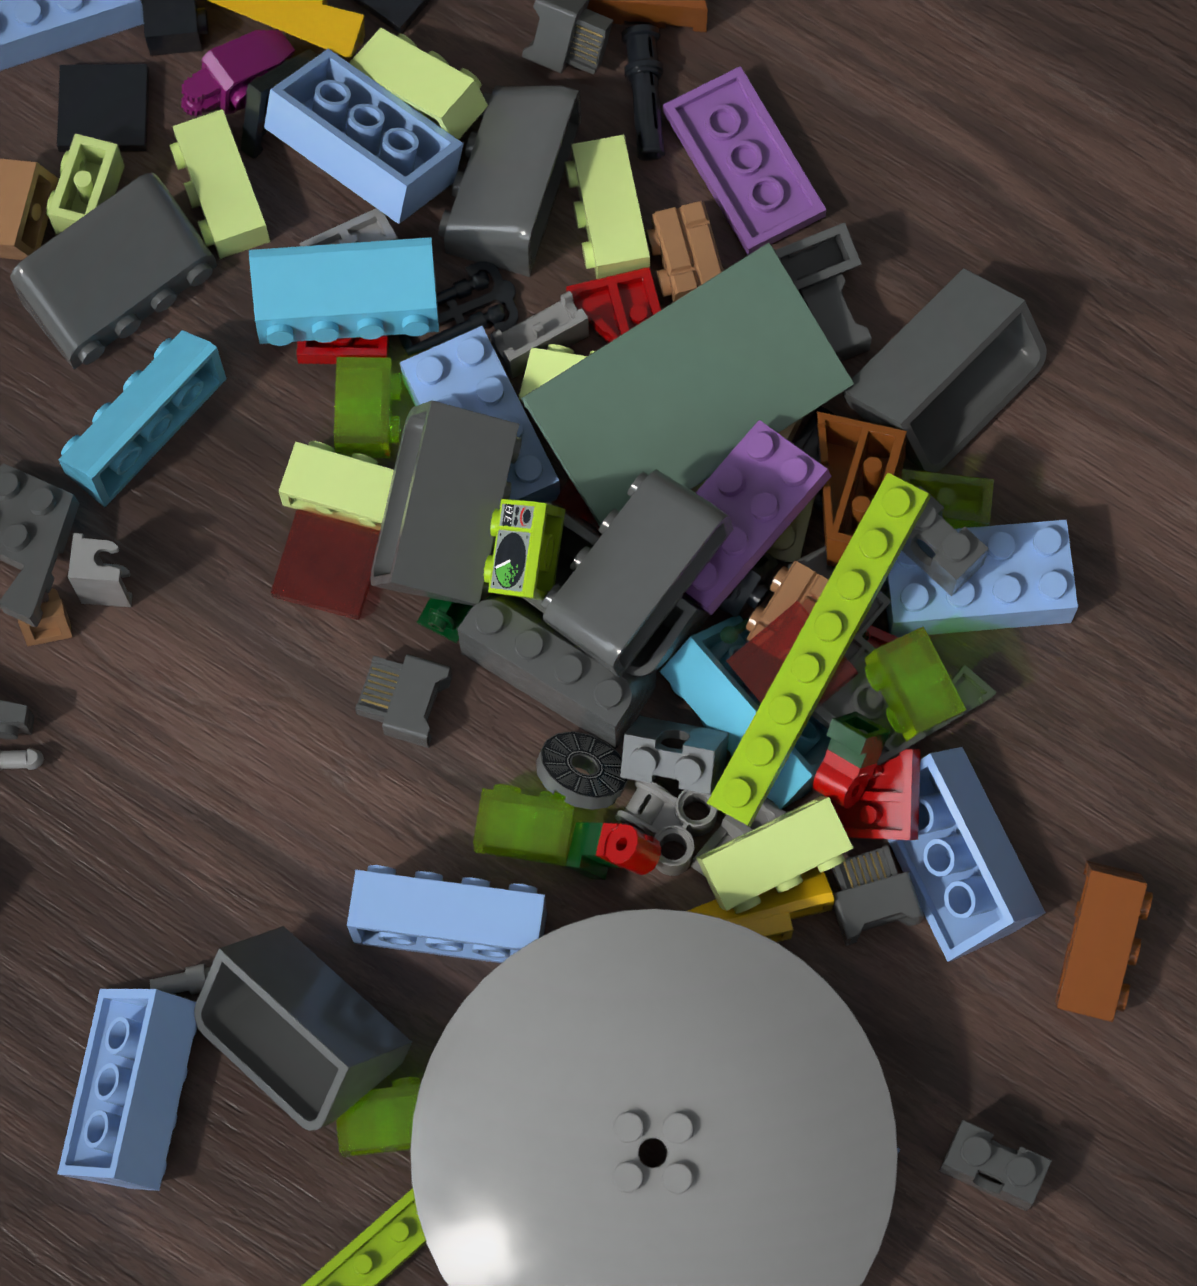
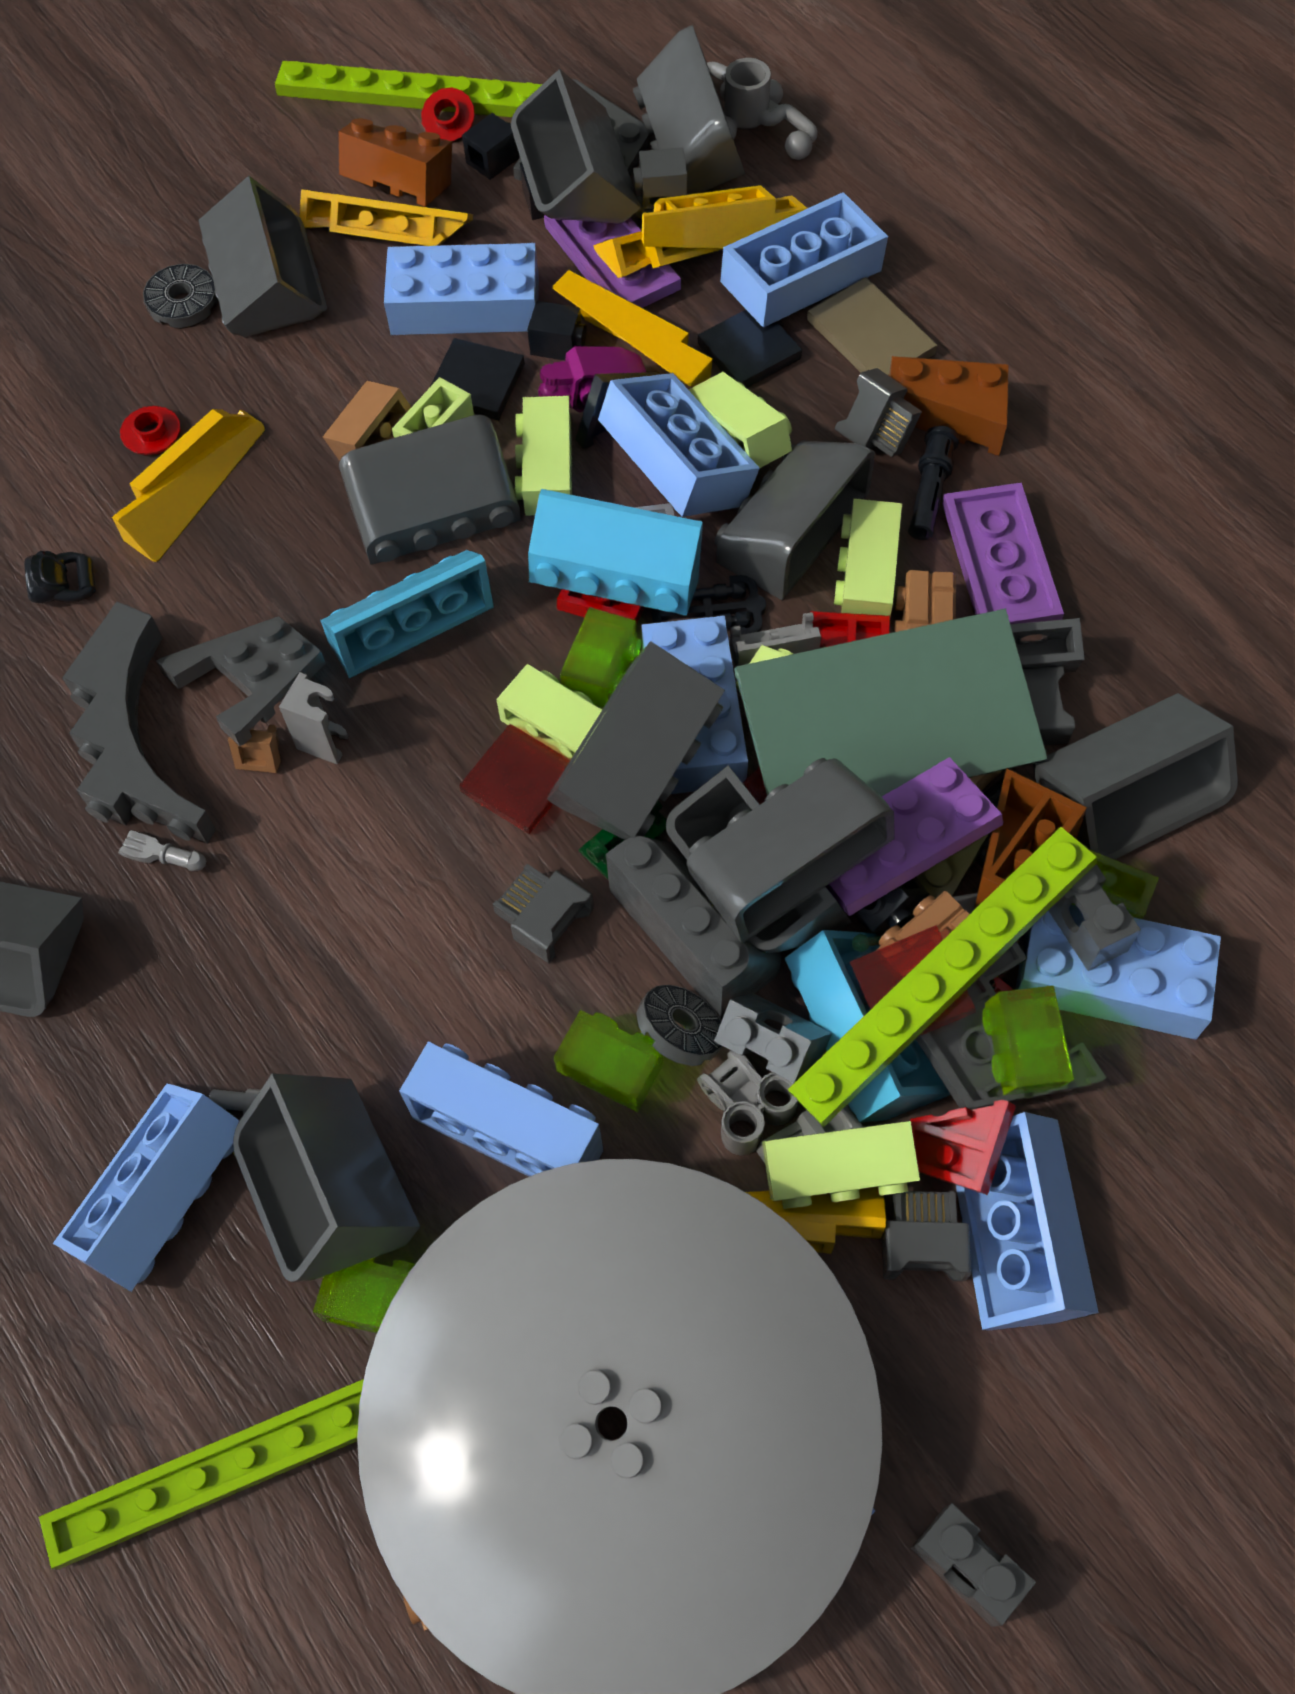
camera: 20 degrees right, 10 degrees down
(524, 548) = (693, 796): slope -> none
(613, 846) = (682, 1103): leg -> none
(849, 758) = (942, 1091): leg -> none
(1103, 942) = (1151, 1365): dark orange wedge -> none

